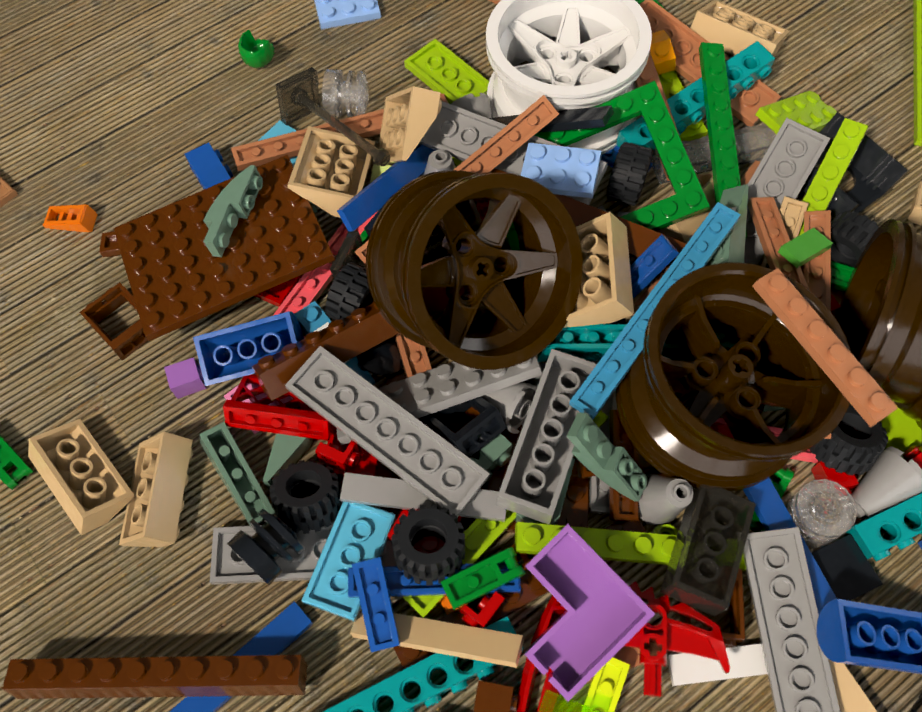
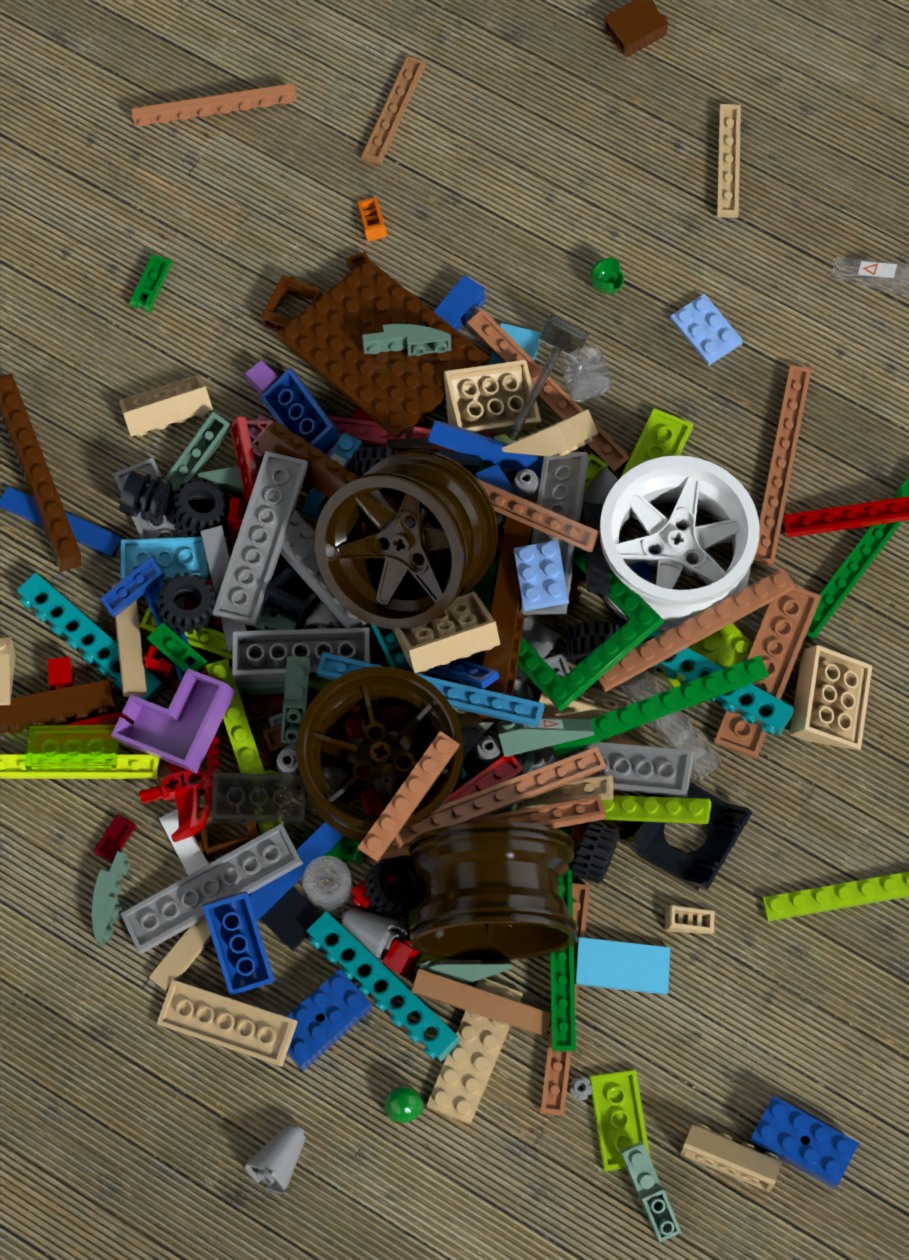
camera: 70 degrees right, 5 degrees up
(79, 475) = (156, 346): tan slope -> none
(662, 52) = (753, 625): light orange slope -> none
(802, 108) = (734, 776): lime plate -> none
(805, 247) = (548, 797): bright green tile -> none

